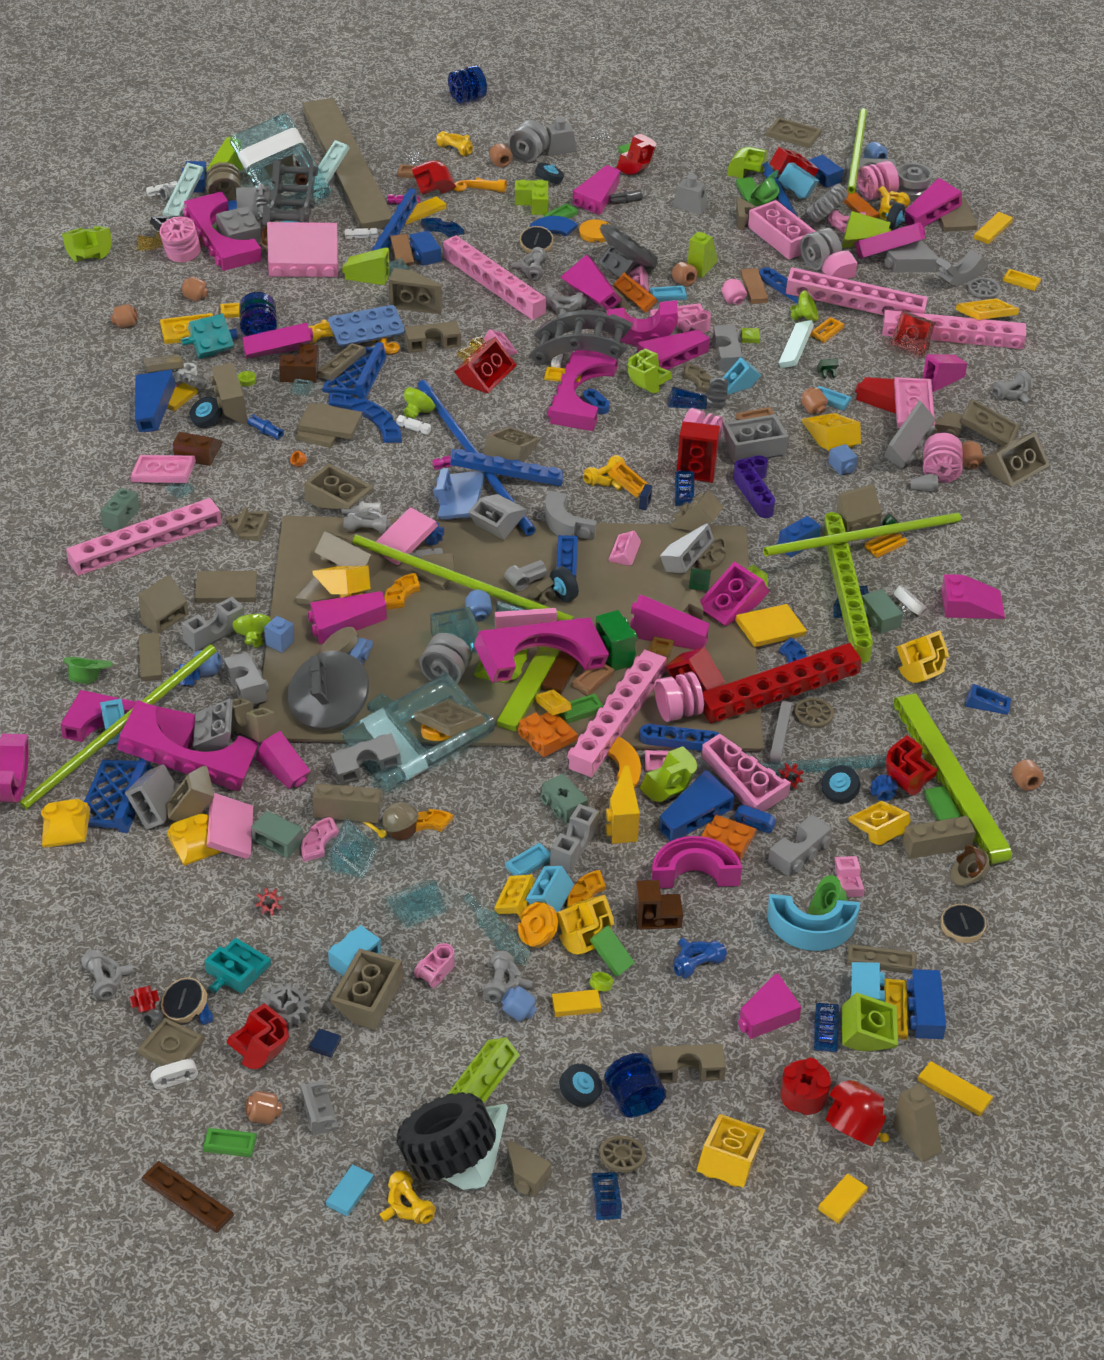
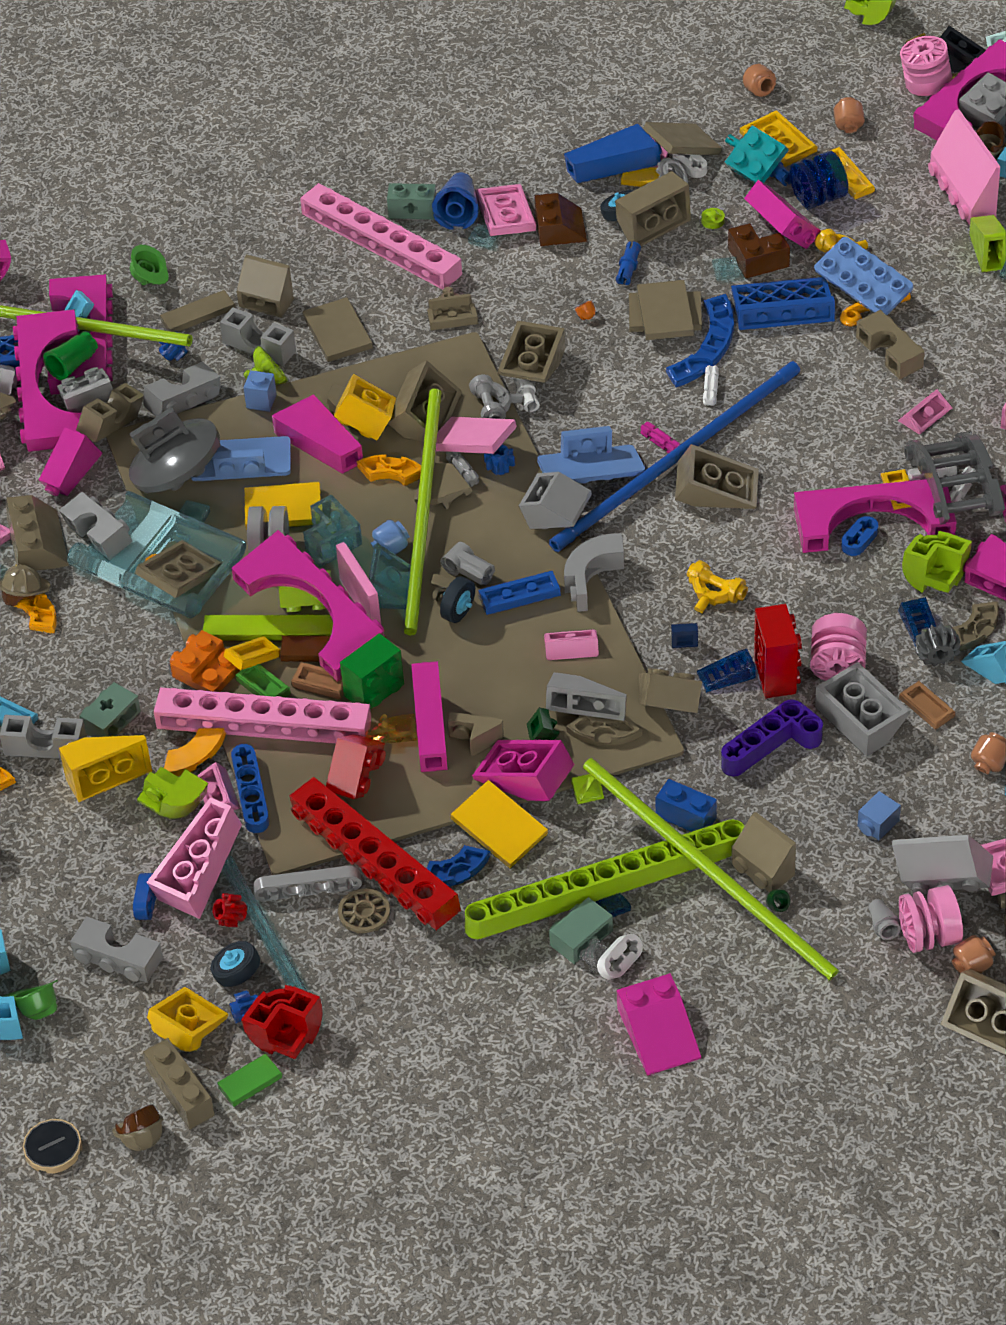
camera: 75 degrees right, 5 degrees up
(145, 482) = (456, 202): none -> blue cone
(175, 724) = (70, 355): none -> green plant
(211, 666) = (201, 351): medium blue head -> none
(341, 361) = (787, 282): dark tan tile -> none
(342, 640) = (253, 439): dark tan tile -> none
(402, 655) = (295, 496): none -> yellow tile
(414, 292) = (956, 289): dark tan slope -> none
(417, 402) = (742, 370): lime hair -> none
(465, 352) = (893, 392): clear yellow slope -> none
(486, 366) = (859, 412): red slope -> none
(506, 467) = (659, 487): blue plate -> none
(627, 479) = (706, 629): light orange tile -> none
(678, 696) = (297, 756): bright pink wheel -> none
(696, 807) = (135, 831): blue slope -> none
(696, 854) = (49, 838): dark pink brick -> none
(731, 833) = (106, 879): orange plate -> none
(833, 430) = (938, 789): yellow slope -> none
(849, 875) = (96, 1010): bright pink slope -> none
(883, 541) = (727, 900): light orange tile -> none
(923, 657) = (498, 990): yellow brick -> none
(952, 777) = (295, 1075): lime beam -> none
(980, 698) = (461, 1067): blue slope -> none
(1027, 775) = (332, 1156): nougat head -> none

